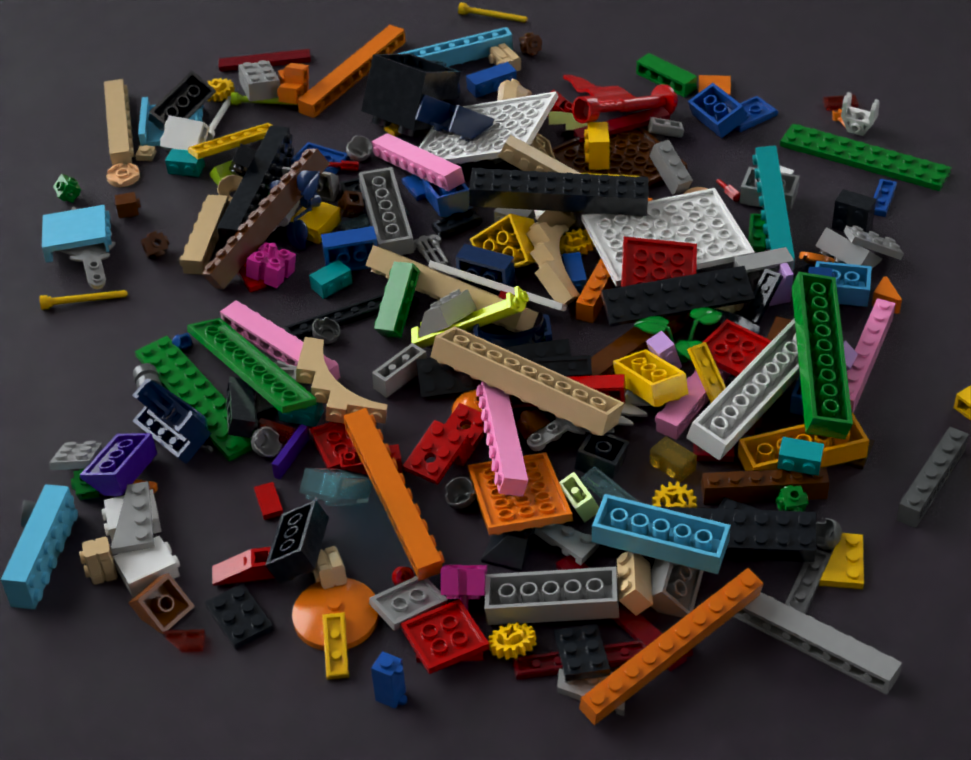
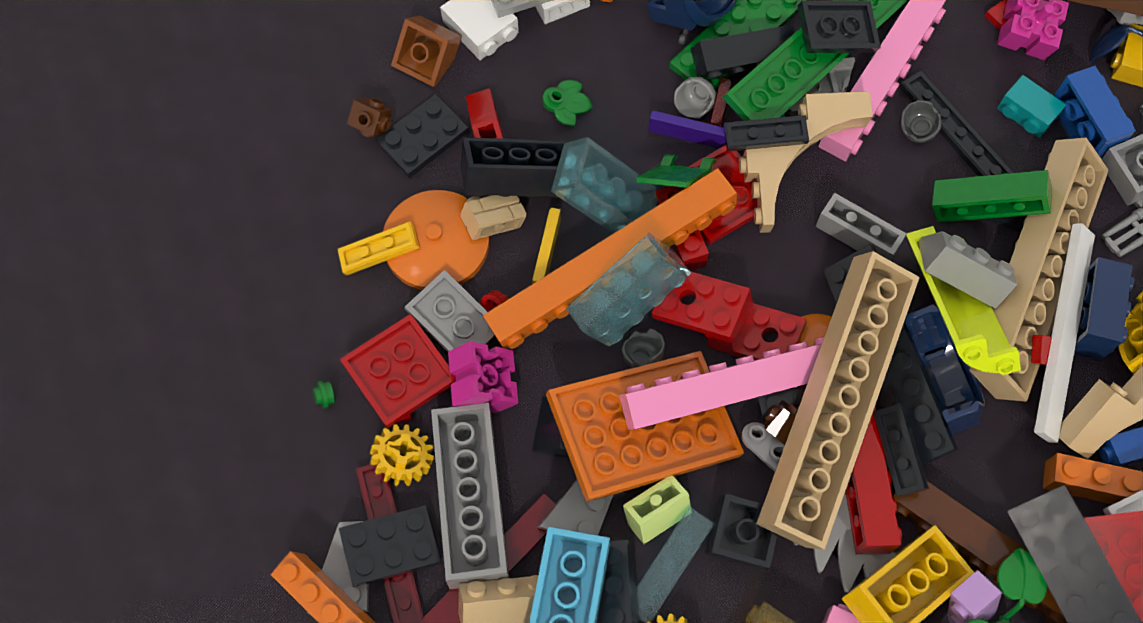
camera: 80 degrees right, 25 degrees up
(187, 639) = (384, 88): clear red tile -> none
(214, 641) = (370, 116): none -> reddish brown brick
(240, 521) = (569, 101): none -> green plate
(244, 349) = (838, 26): none -> black plate
(268, 500) = (607, 124): red tile -> none
(320, 392) = (766, 133): none -> black tile
(334, 450) = (674, 175): none -> green flag
(366, 542) = (547, 245): none -> yellow tile
(389, 680) = (315, 316): blue brick -> none
(419, 478) = (628, 290): none -> clear light blue brick
(451, 690) = (323, 394): none -> green plate

